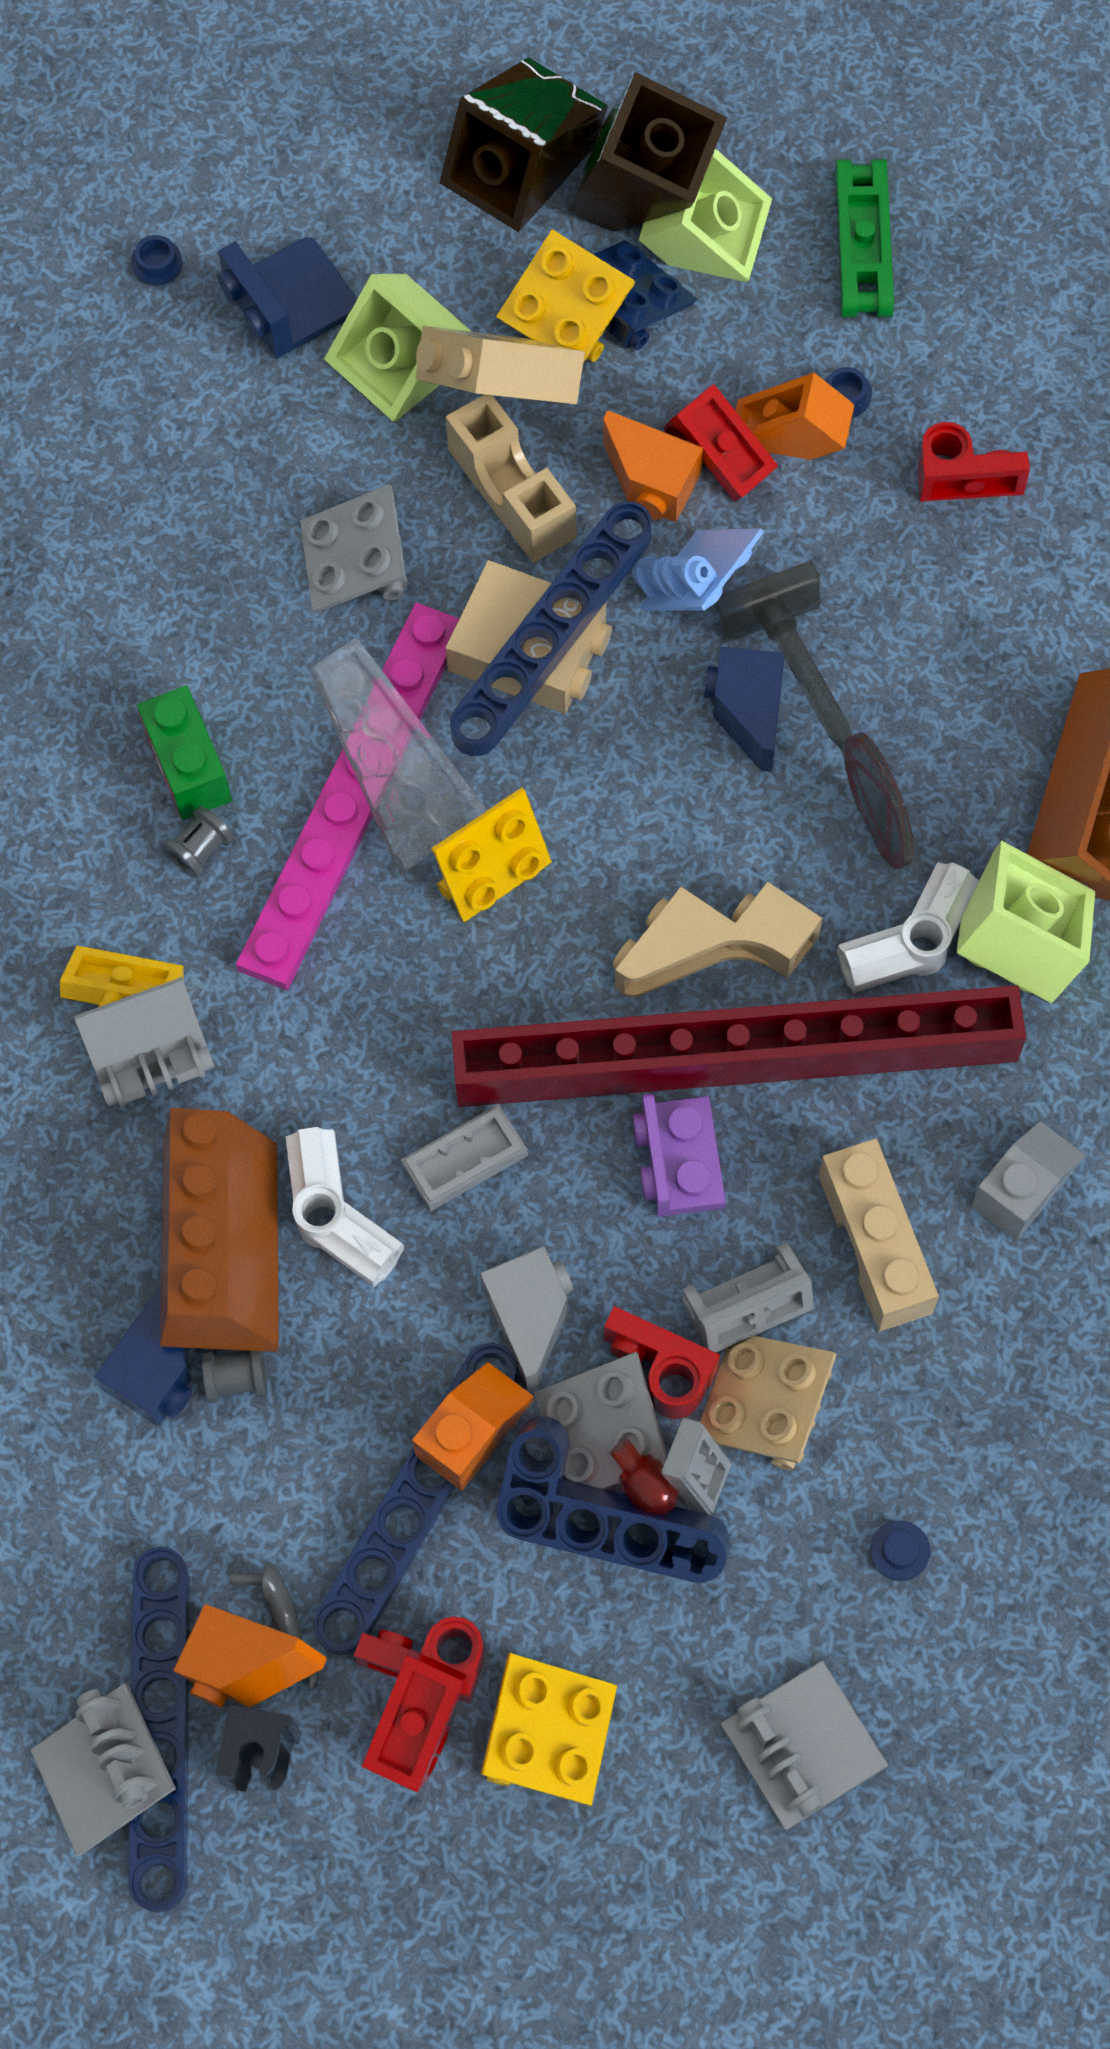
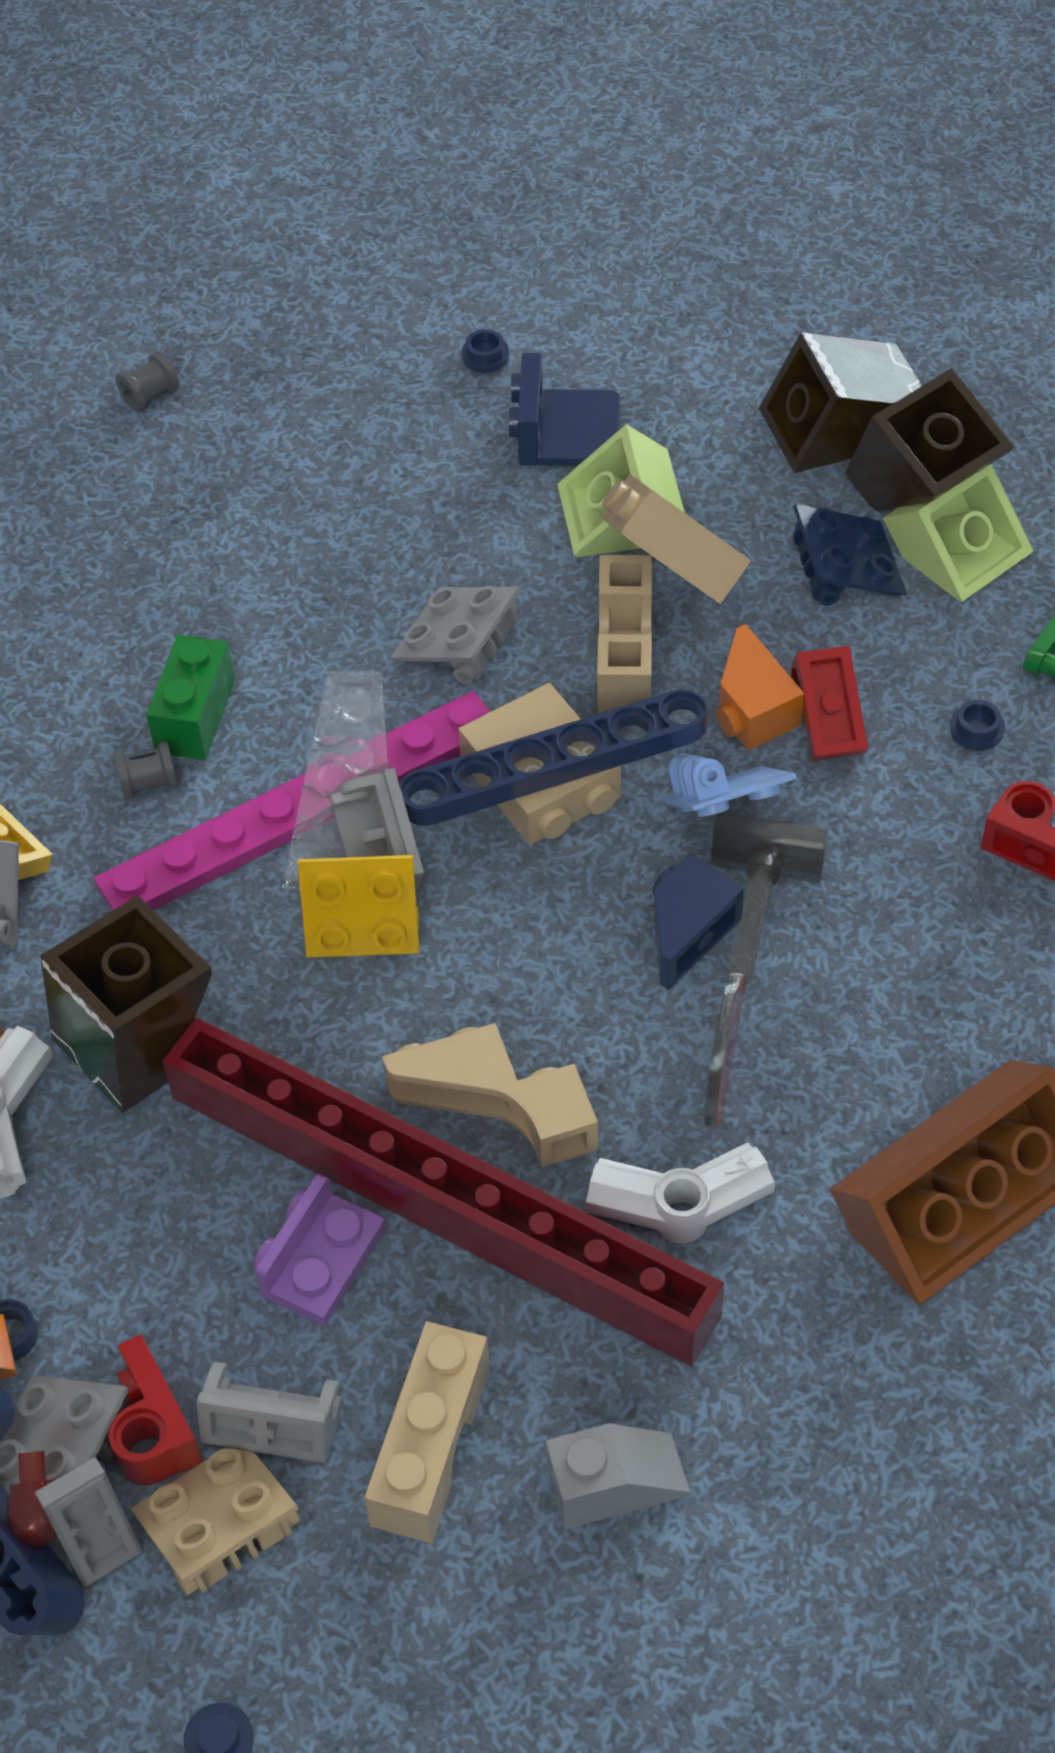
camera: 35 degrees right, 15 degrees down
(385, 1053) = (123, 999): none -> dark brown slope
(454, 778) = (375, 819): none -> light grey hinge
(464, 1157) = (138, 1139): light grey plate -> none
(529, 1308) = (76, 1298): light grey slope -> none
(566, 297) = (781, 530): yellow hinge -> none
(798, 417) = (915, 720): orange slope -> none
(1028, 923) = (786, 1240): yellowish green slope -> none

